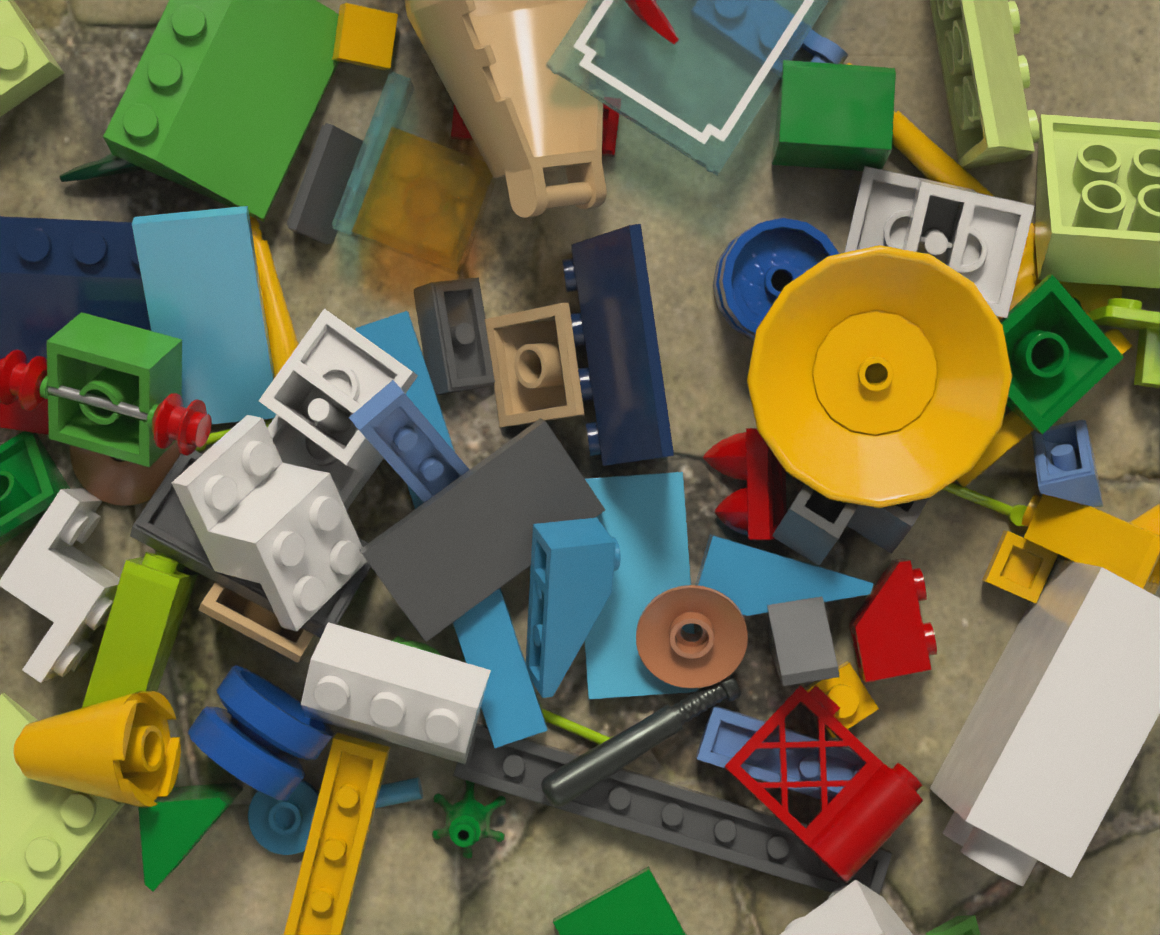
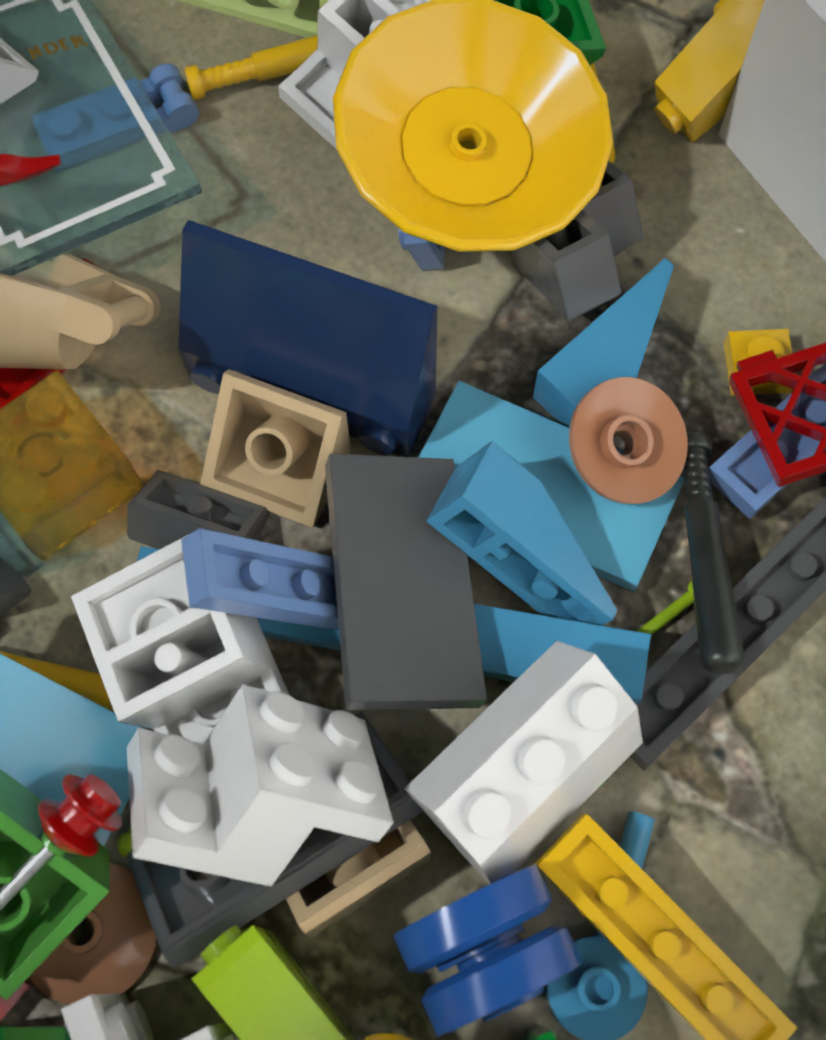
camera: 60 degrees left, 20 degrees down
(468, 820) = (707, 779): green piece -> none
(749, 261) = (319, 208): blue wheel -> none
(762, 504) = (481, 315): red tile -> none
(801, 641) = (689, 341): slope -> none
(834, 116) = (221, 89): green slope -> none
(889, 626) = (714, 277): red slope -> none
(1015, 513) = (662, 141): lime hinge -> none
(1020, 566) = (713, 152): yellow plate -> none
(1067, 464) = (645, 49): medium blue slope -> none

